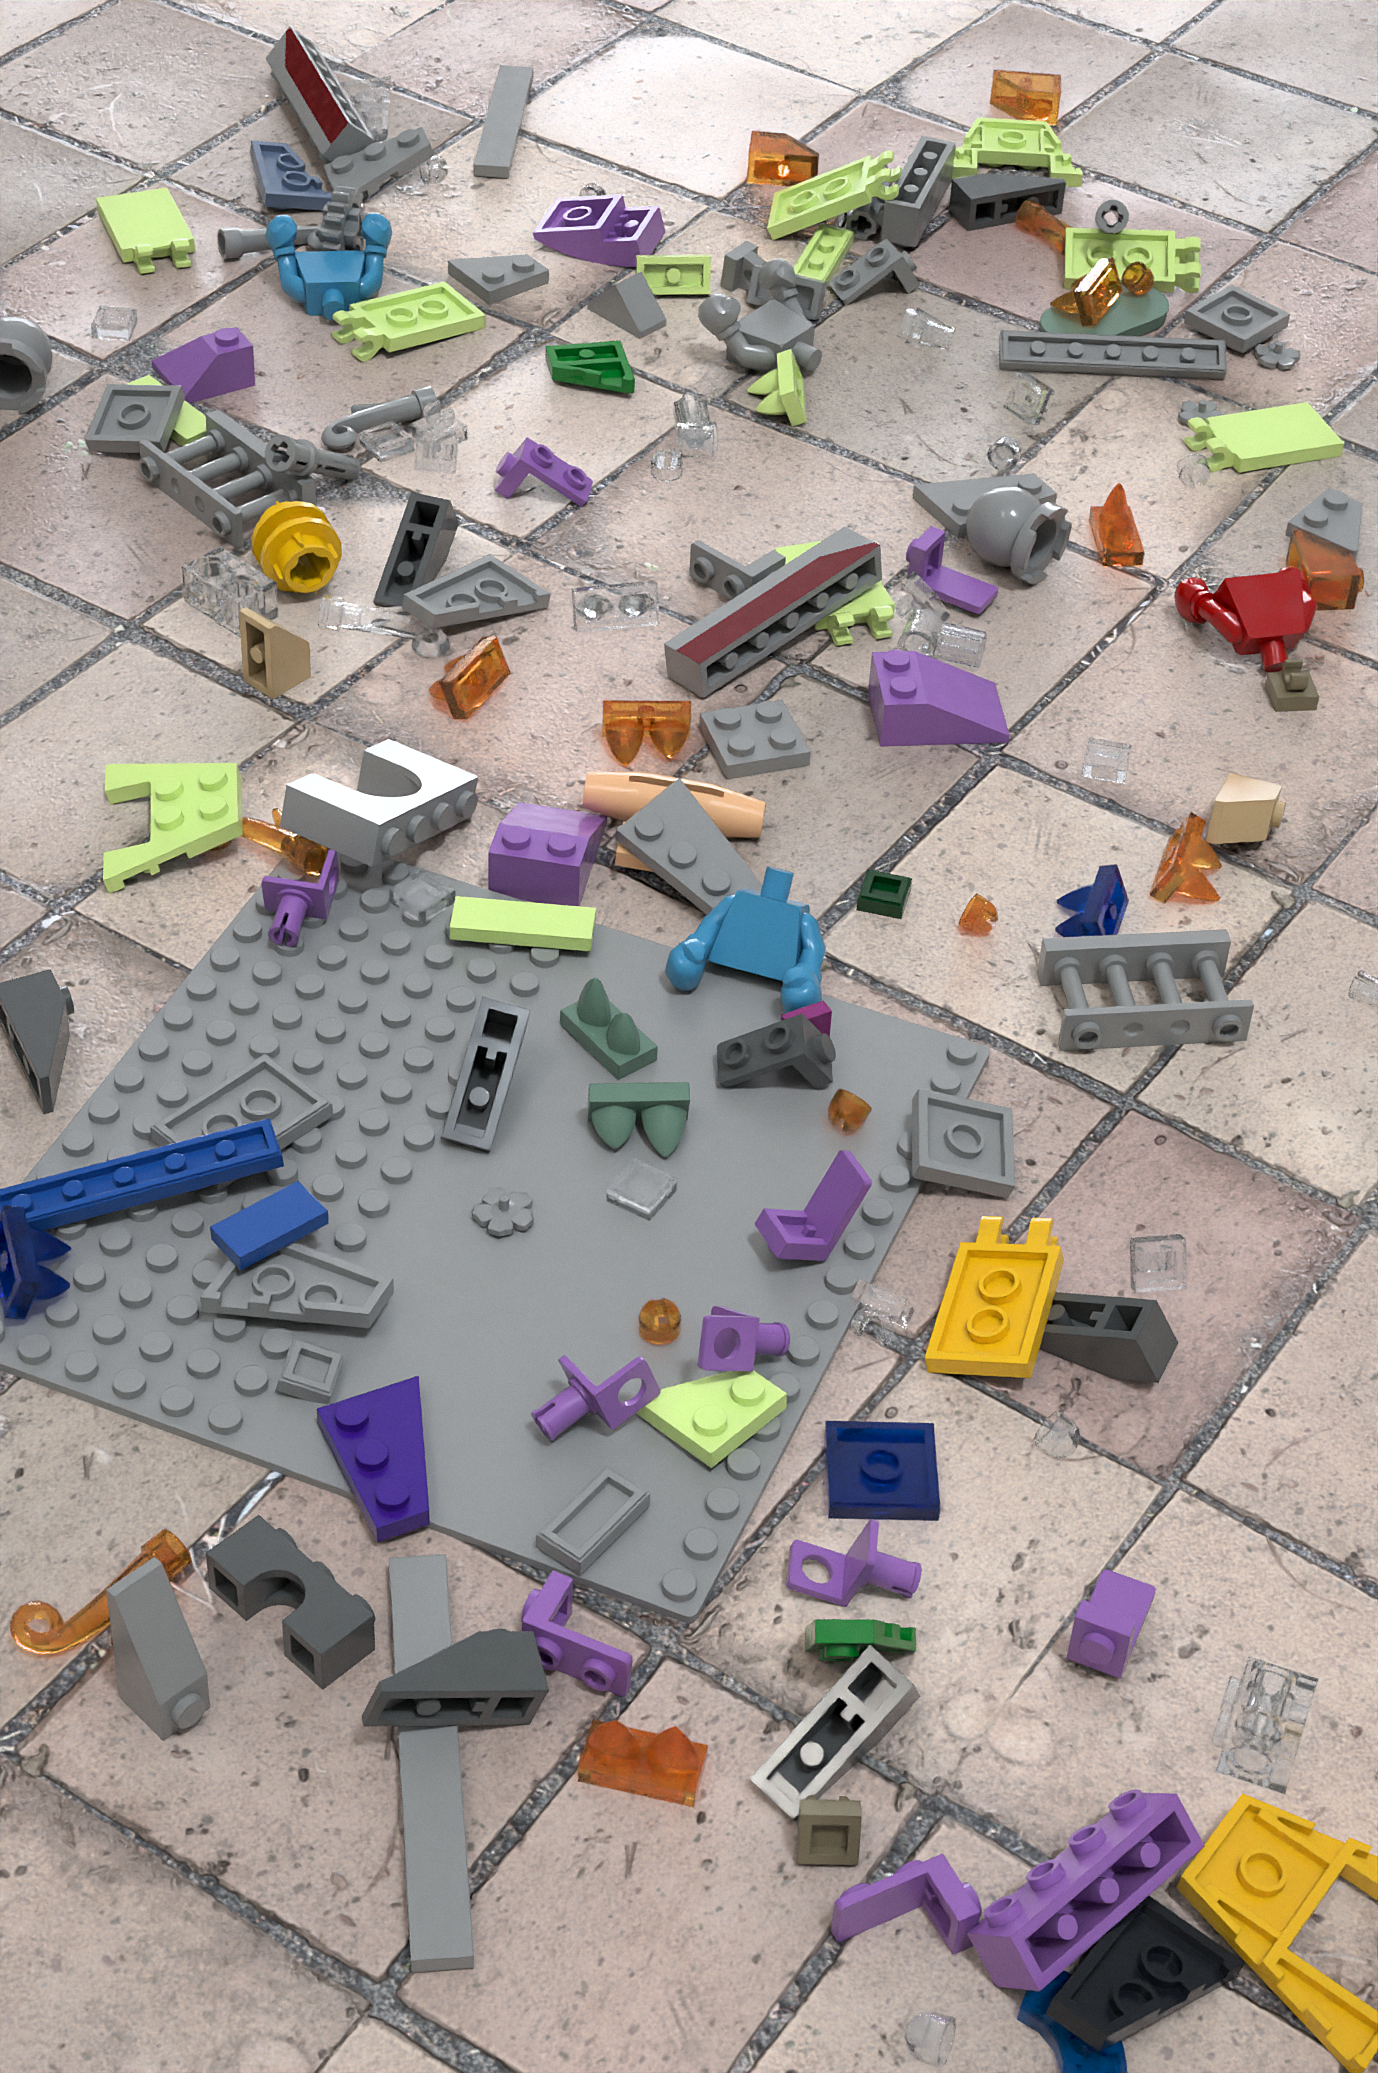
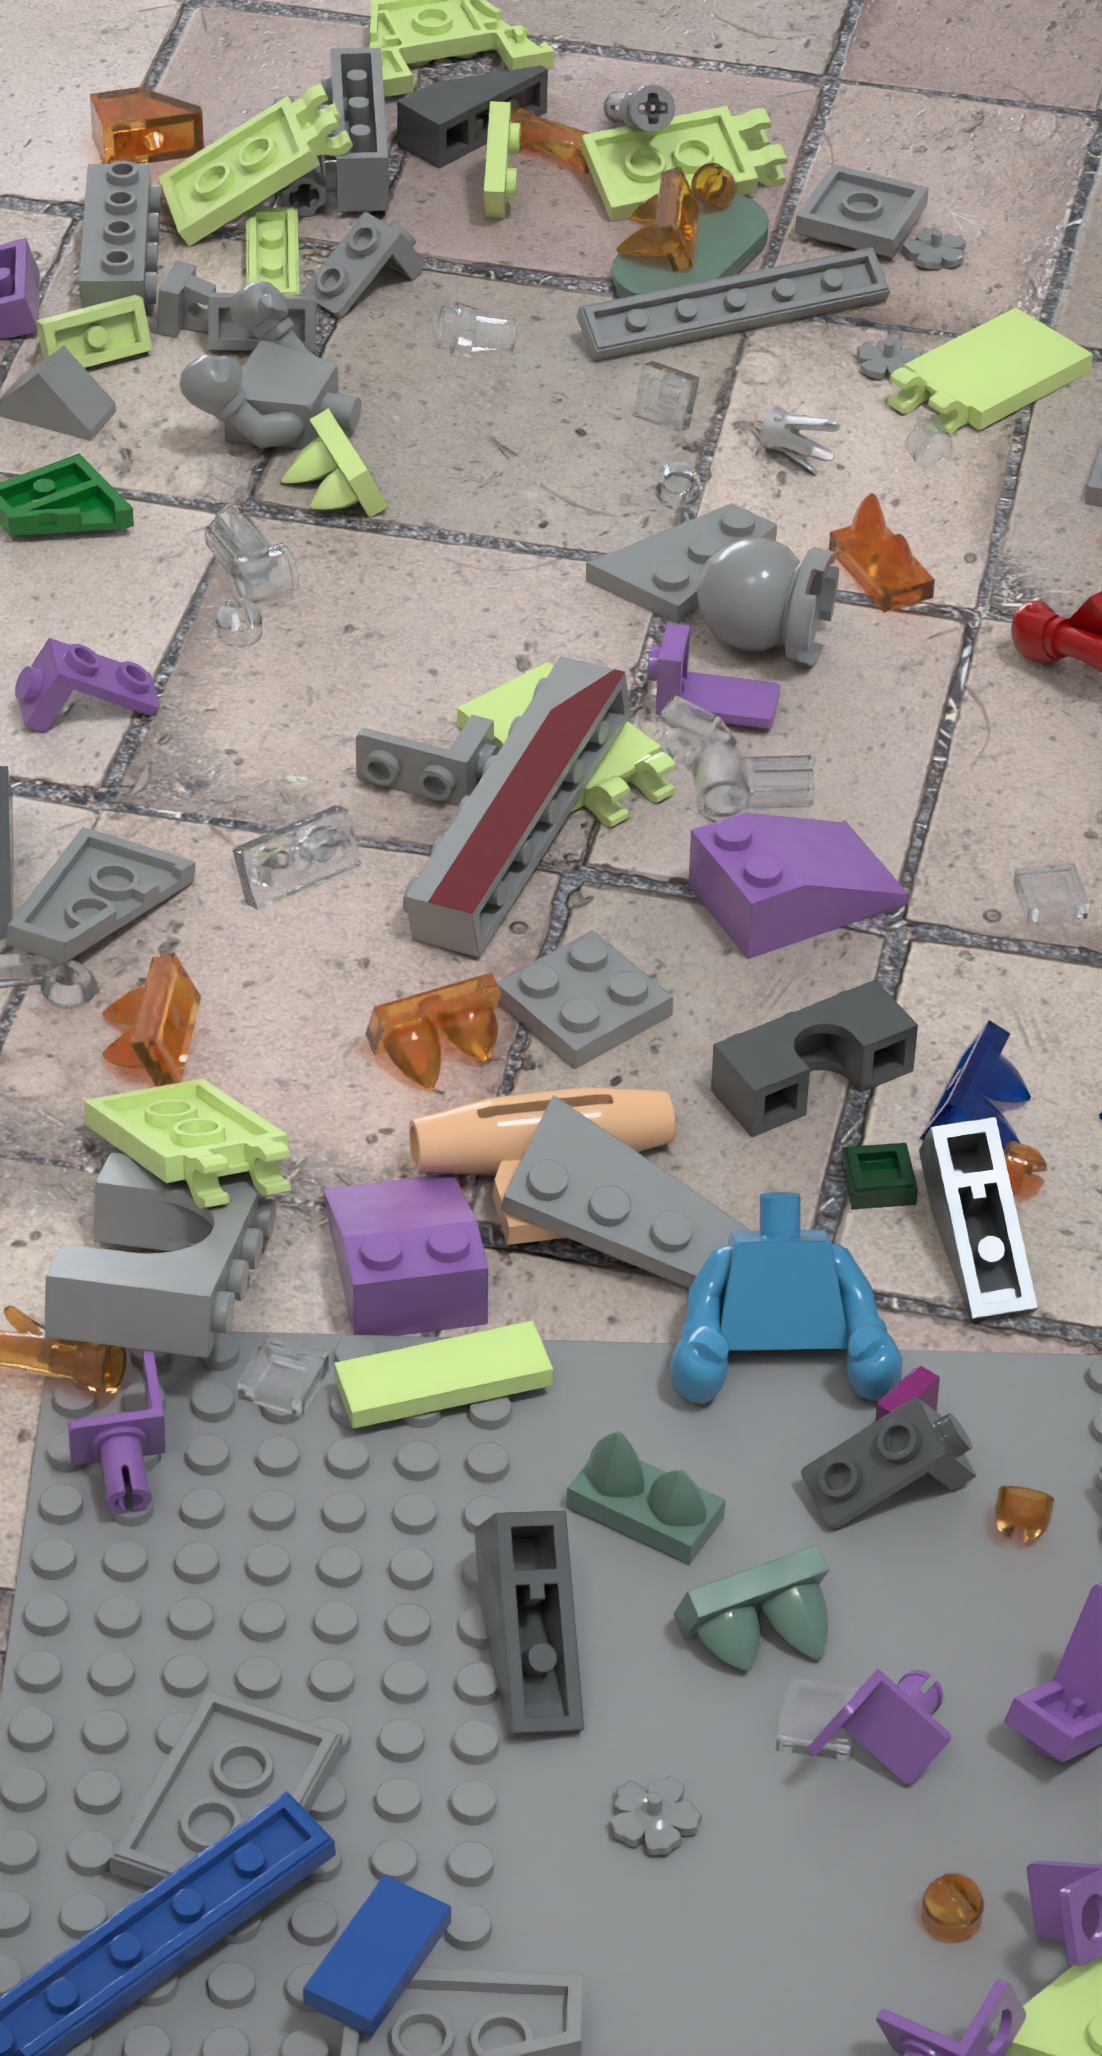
camera: 20 degrees left, 0 degrees up
(443, 741) = (192, 1136): none -> yellowish green tile
(677, 1200) = (893, 1723): none -> medium lavender bracket
(724, 218) = (120, 234): none -> light grey brick
(912, 803) = (767, 1068): none -> dark grey arch
(928, 932) = (978, 1218): none -> slope
(961, 866) = (981, 1075): none -> clear blue tile
(1001, 231) = (502, 142): none -> yellowish green wing
(1097, 440) = (782, 430): none -> flat silver piece

